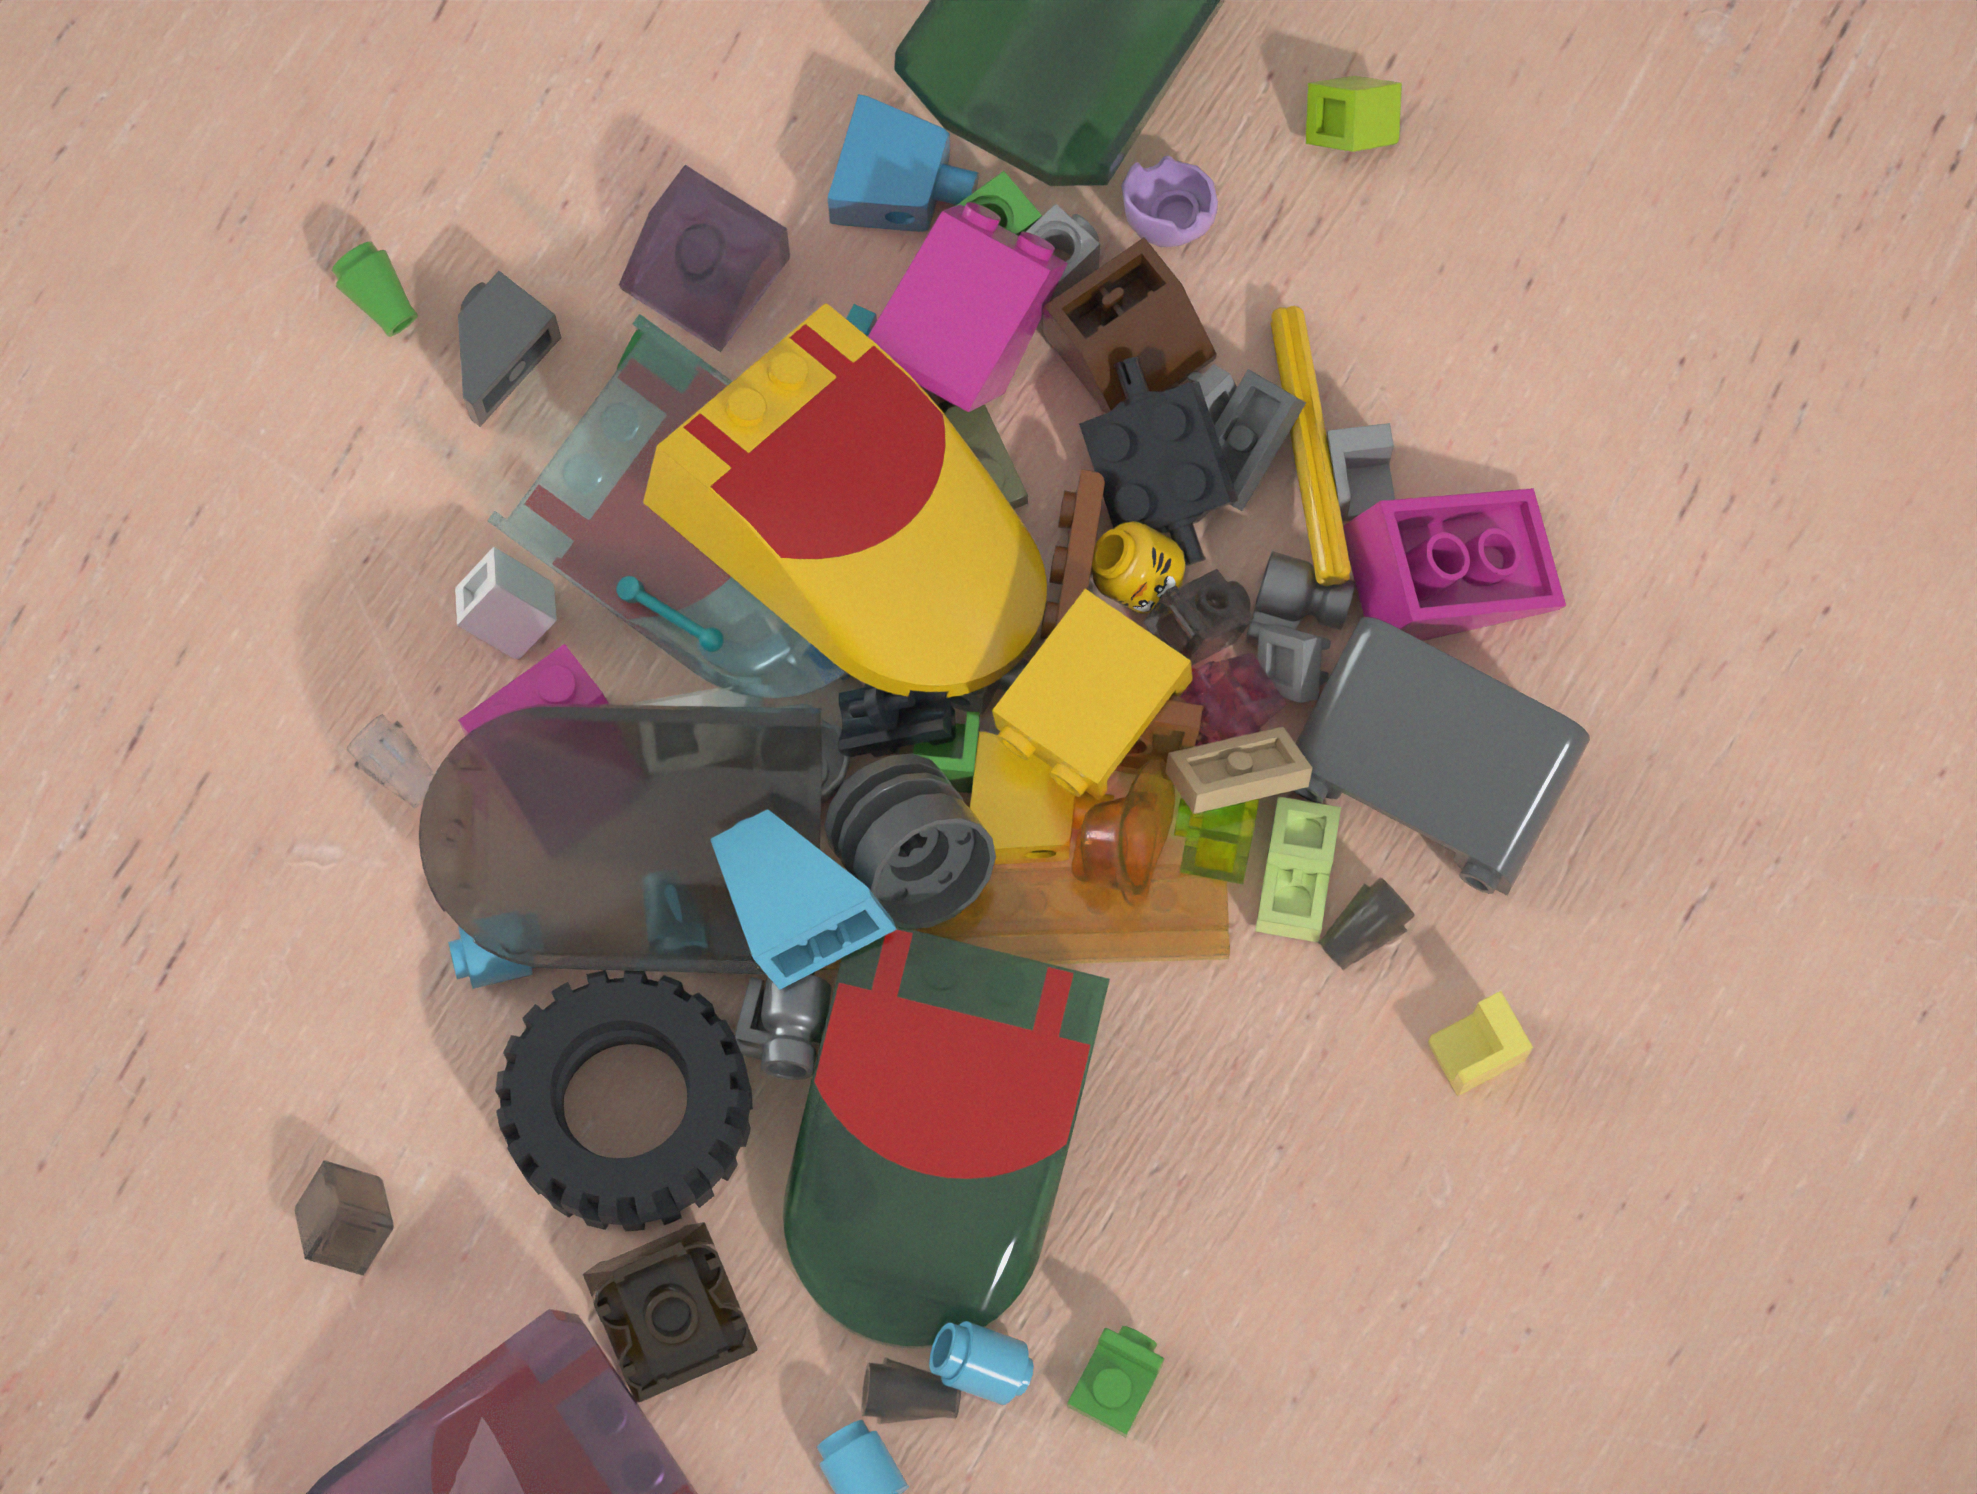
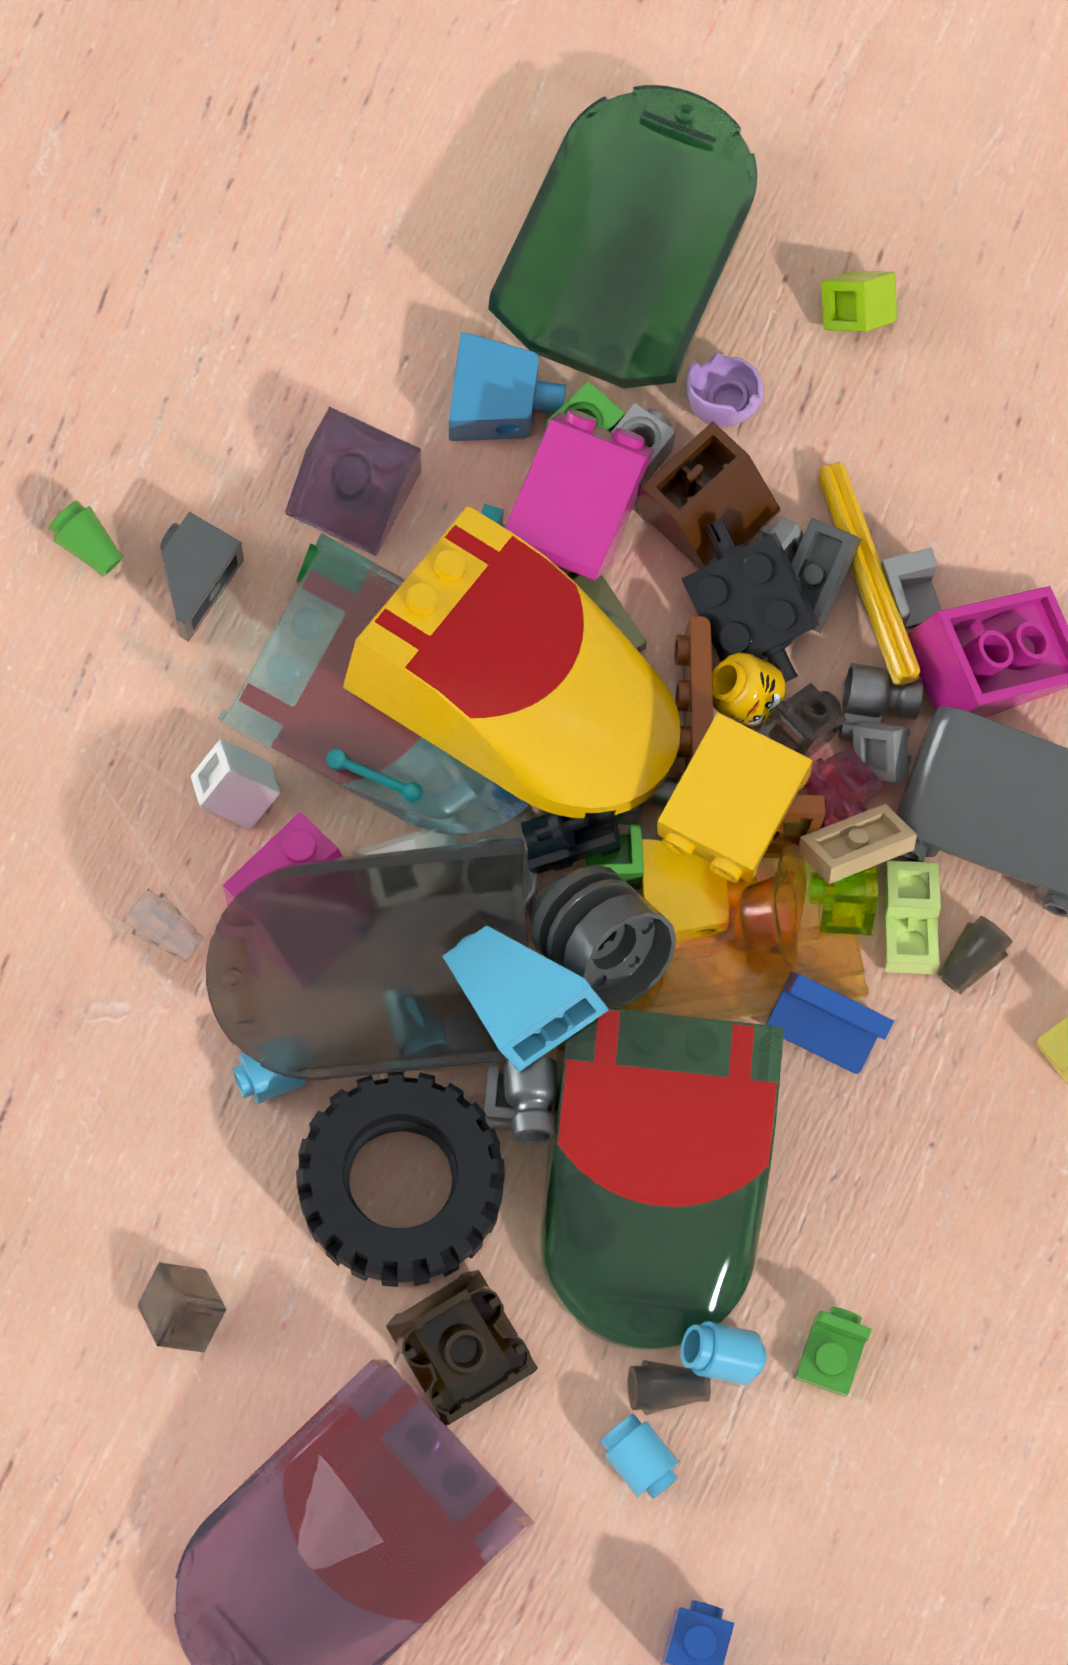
camera: 15 degrees left, 0 degrees up
(1172, 983) = (827, 1022): none -> blue panel

